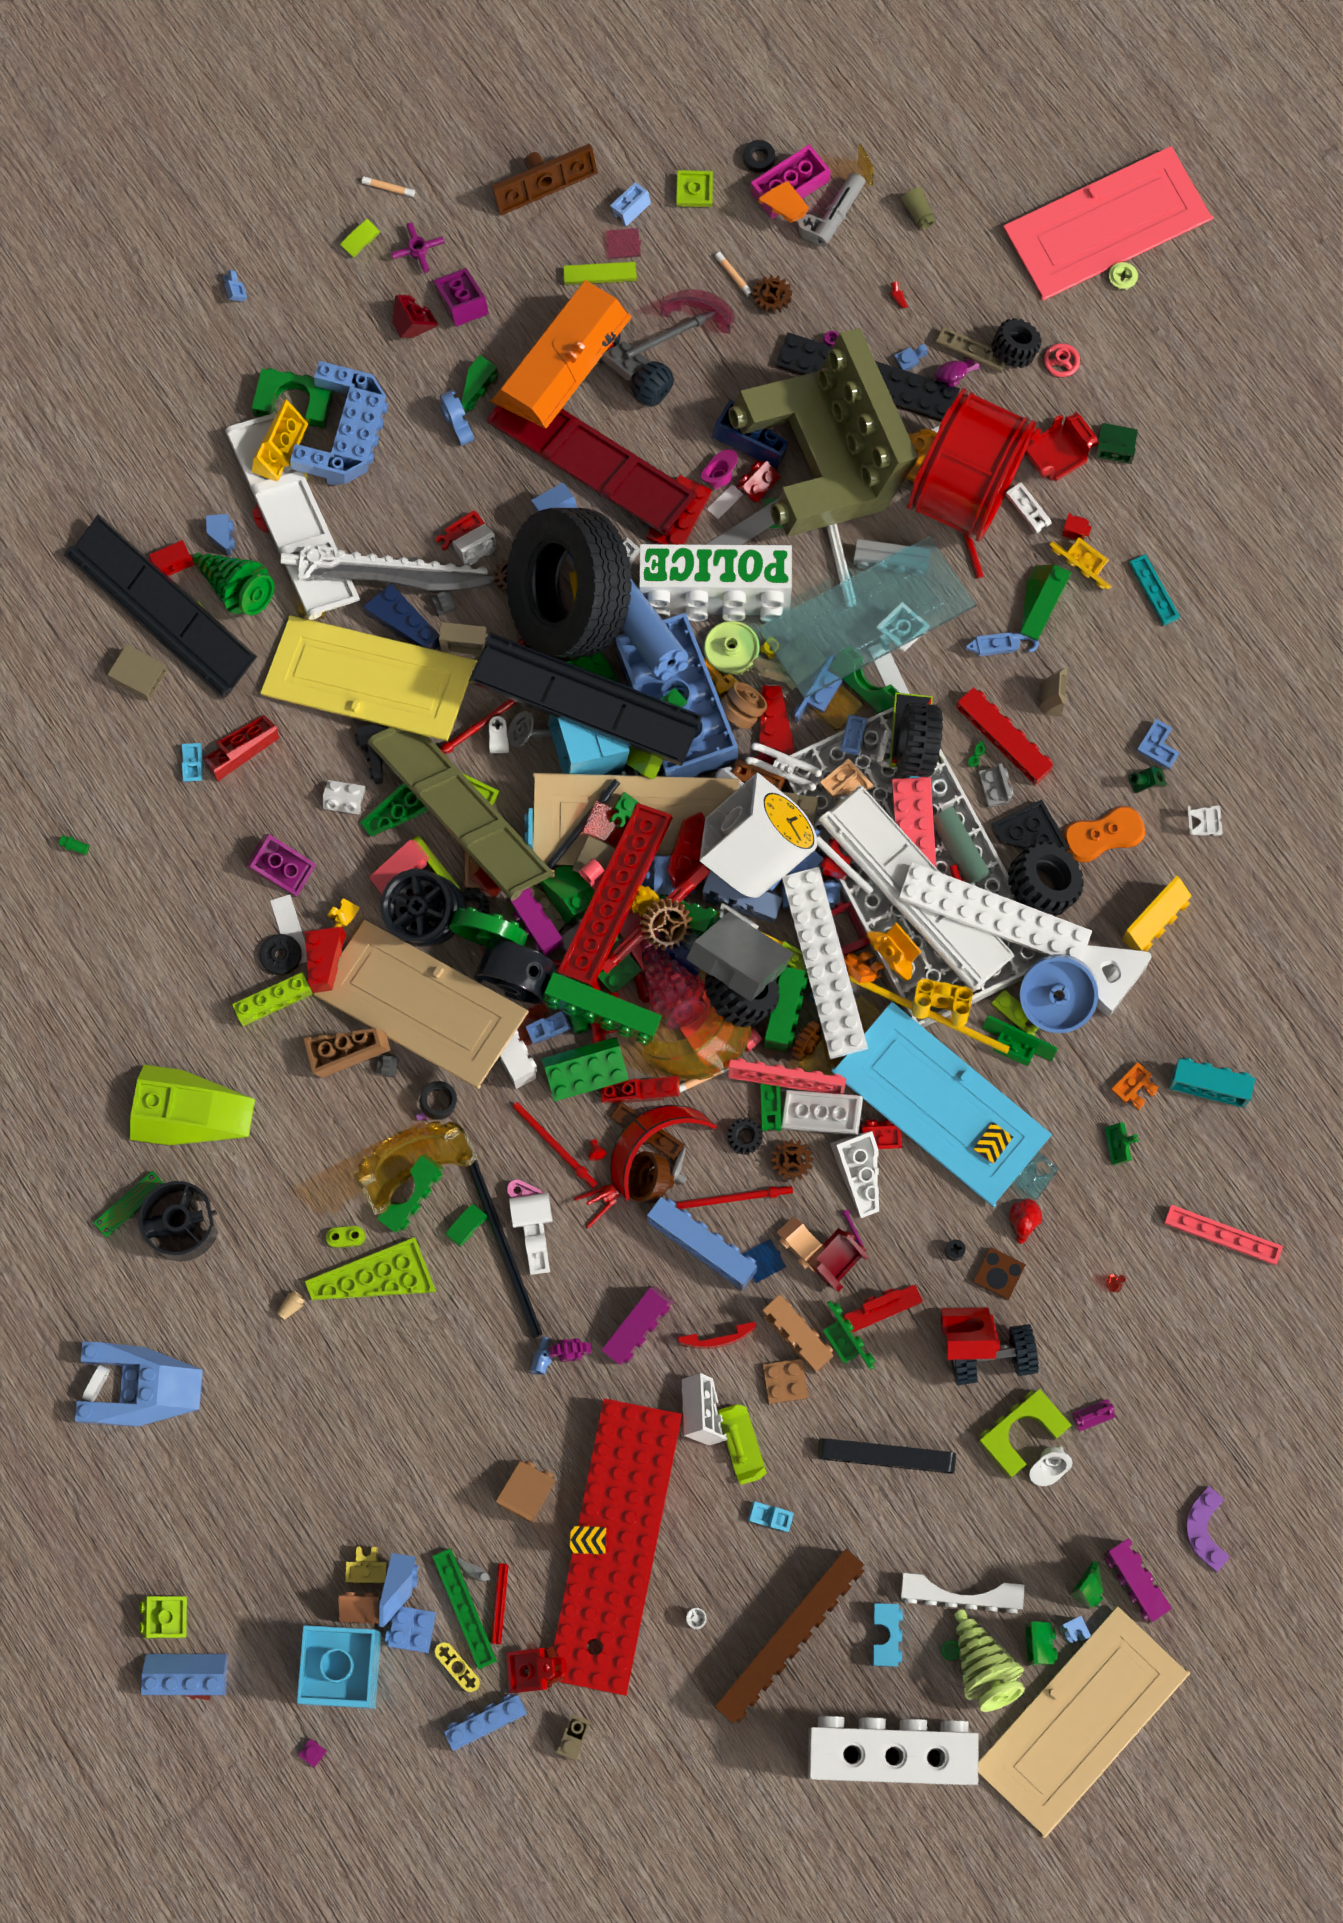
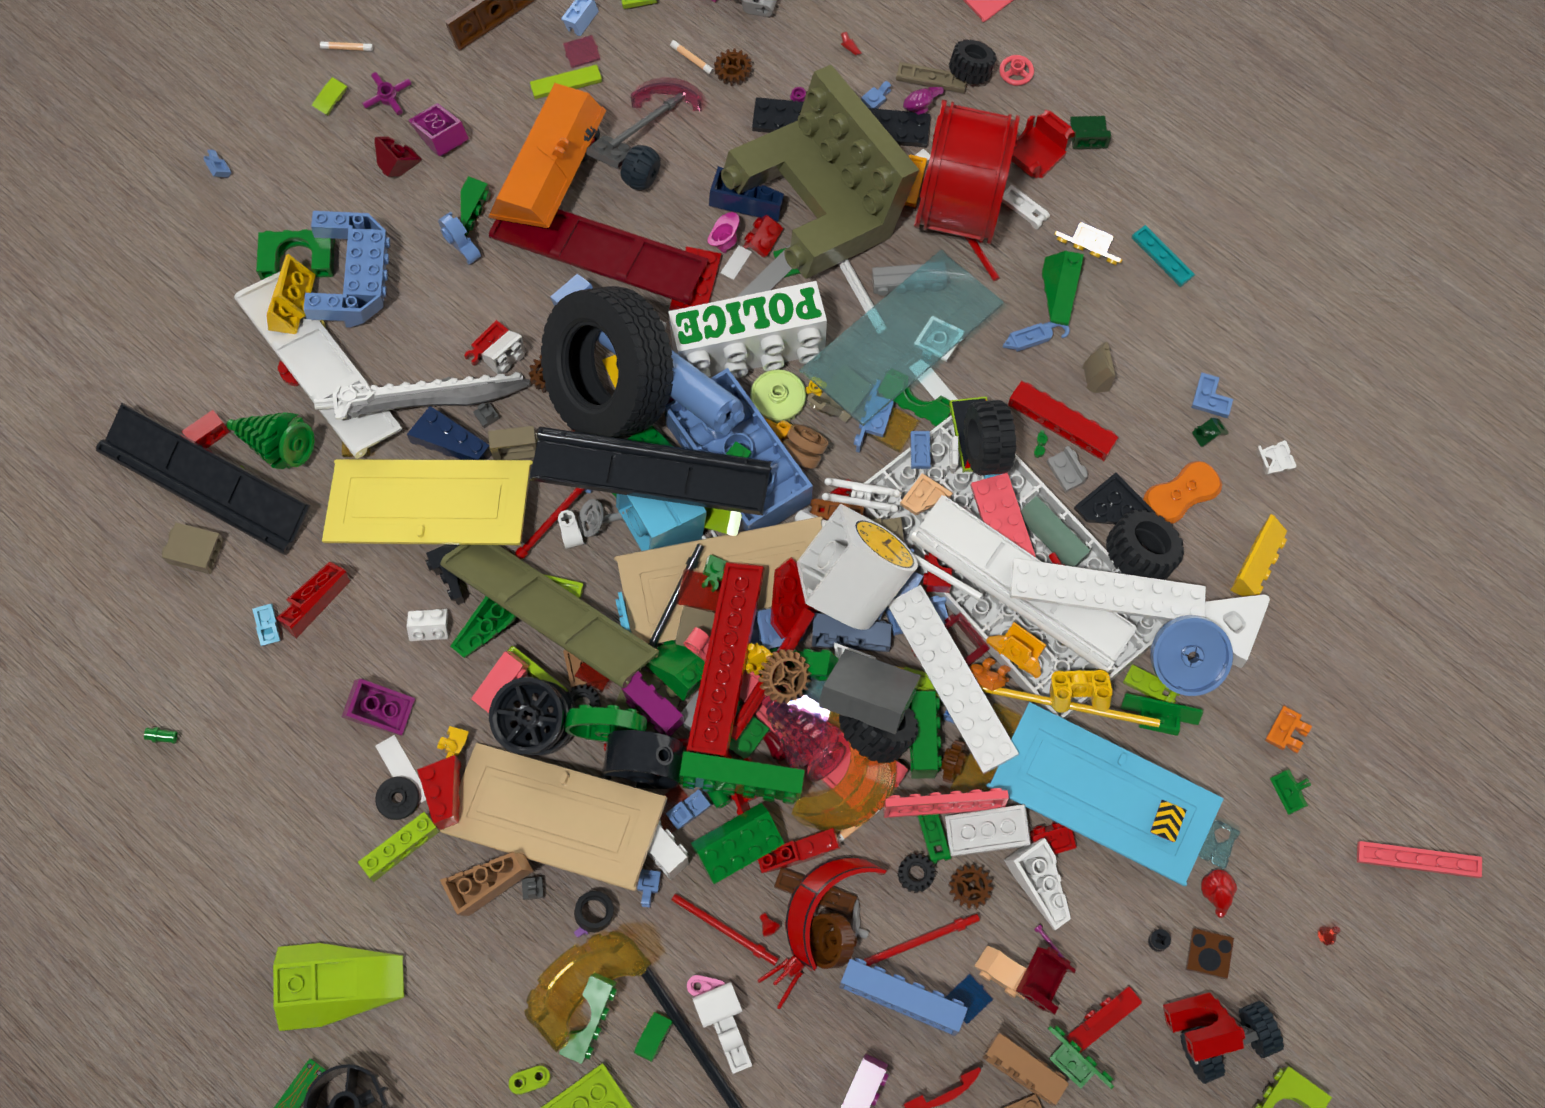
camera: 15 degrees left, 5 degrees down
(219, 532) = (248, 394): medium blue slope -> none
(494, 1087) = (648, 884): none -> medium blue plate
(774, 724) = (837, 457): red wing -> none
(1076, 527) = (1074, 214): red window -> none
(1094, 1415) = (1348, 1079): magenta hinge -> none
(1211, 1082) = (1363, 709): teal brick -> none

